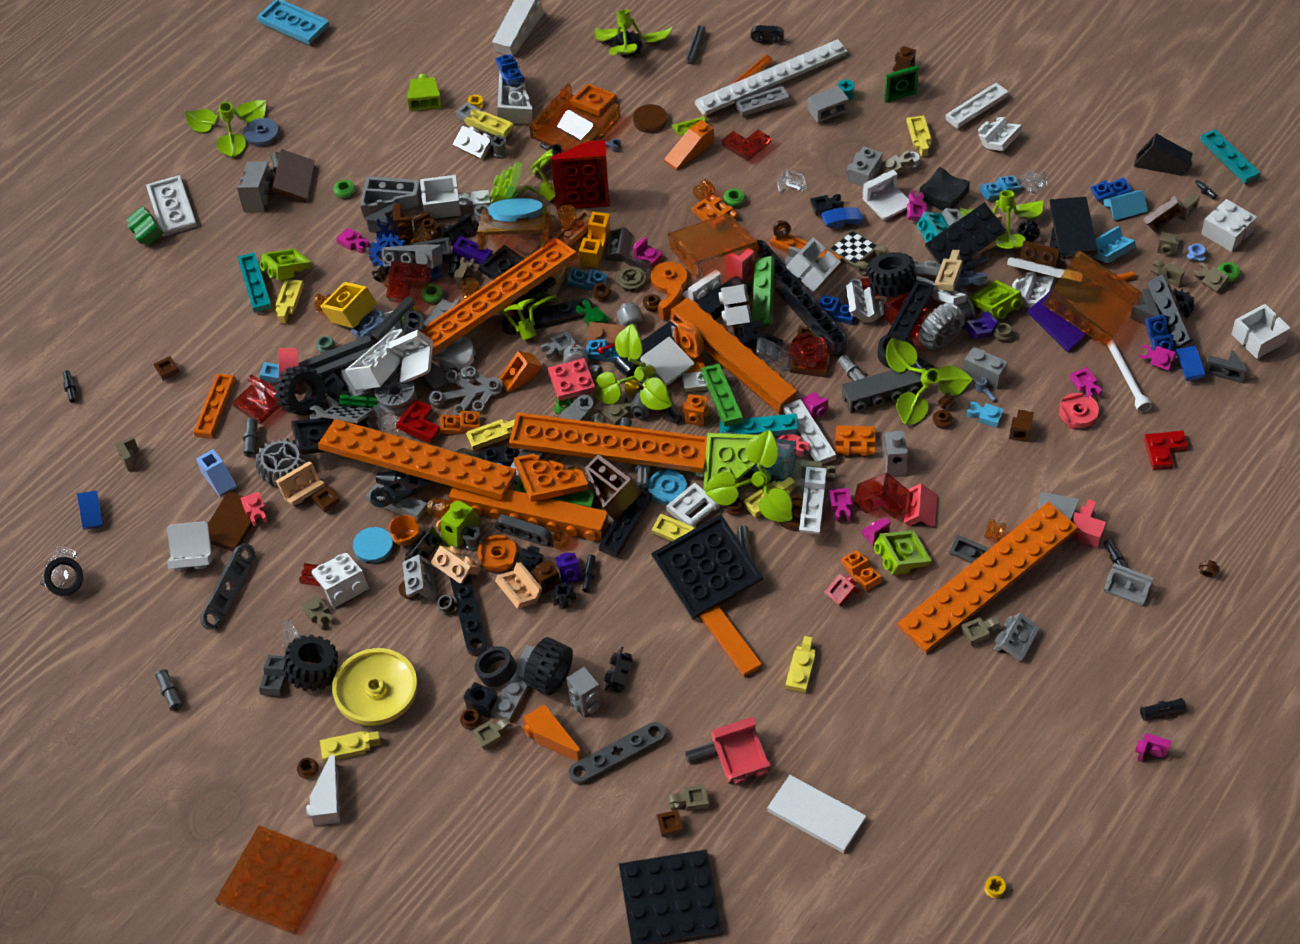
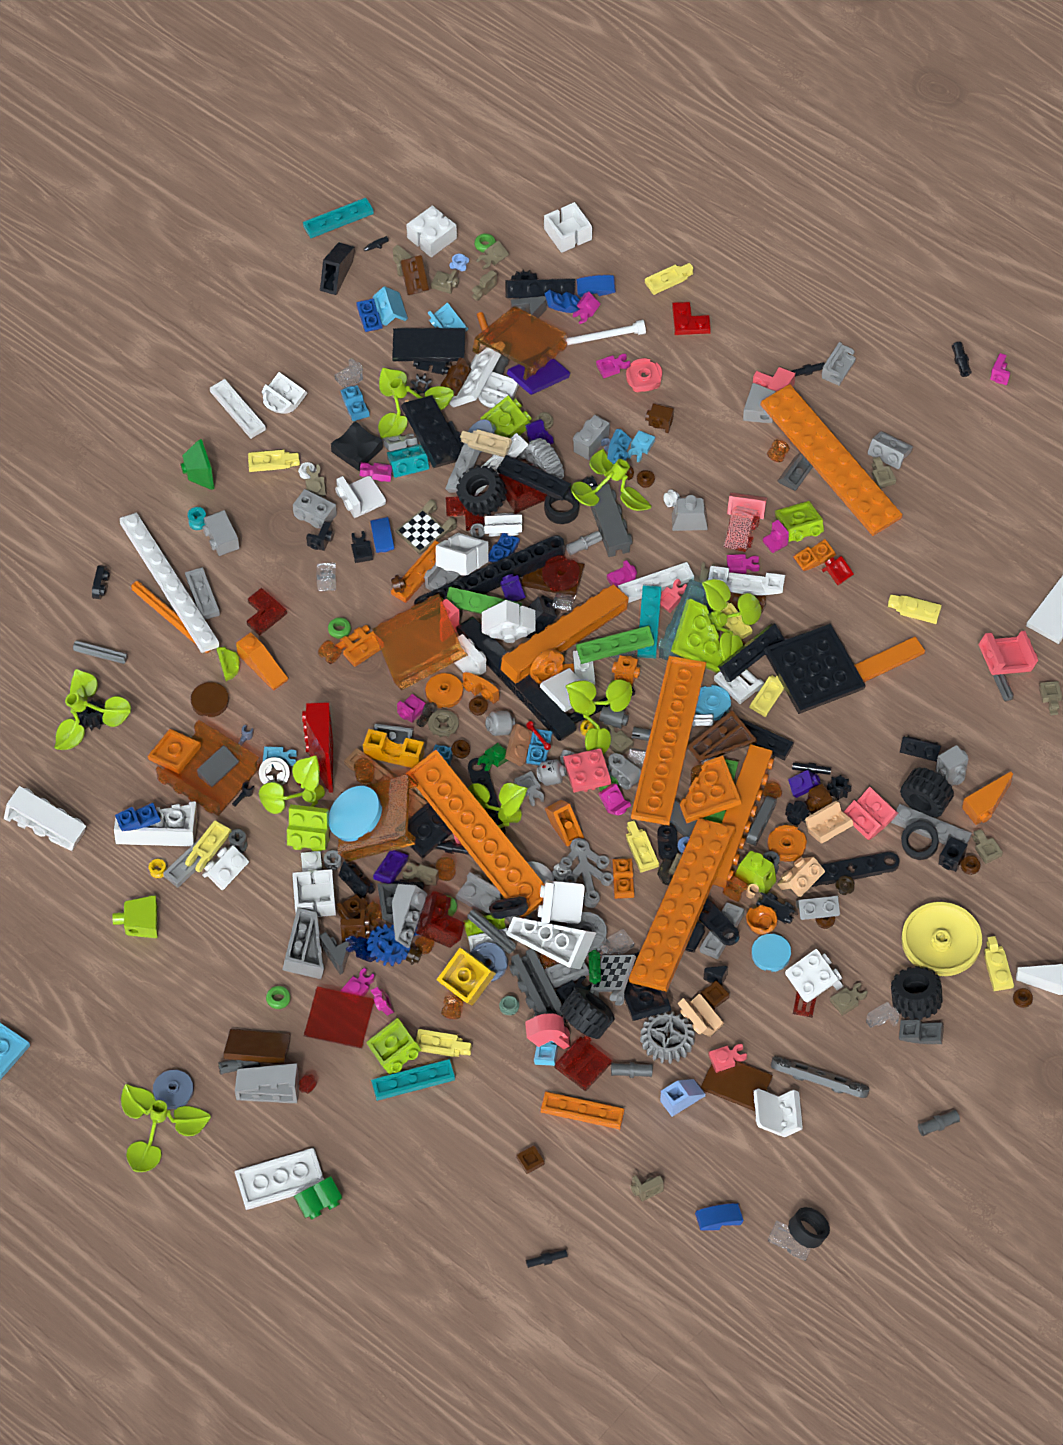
camera: 90 degrees left, 5 degrees up
(255, 212) = (307, 1084): none -> clear red plate
(321, 229) = (339, 1017): none -> clear red piece
(331, 253) = (382, 1001): none -> dark pink plate
(345, 498) = (717, 974): none -> black slope
(415, 422) = (625, 916): red plate -> none
(533, 625) = (870, 813): none -> coral slope
(545, 406) = (613, 800): none -> dark pink bracket
(605, 760) = (997, 740): dark grey piece -> none
(717, 504) = (750, 652): none -> black plate
(786, 316) = (512, 588): none -> dark purple bracket
(834, 175) = (320, 542): none -> black bracket
(852, 436) = (660, 548): orange plate -> none
(904, 58) = (164, 462): reddish brown brick -> none
(918, 441) = (670, 498): none -> white plate
(974, 391) = (619, 446): none -> dark azure slope
(1209, 568) = (823, 306): reddish brown plate -> none
(1217, 426) = (668, 278): none -> light yellow hinge
(1228, 369) = (603, 258): dark grey slope -> none

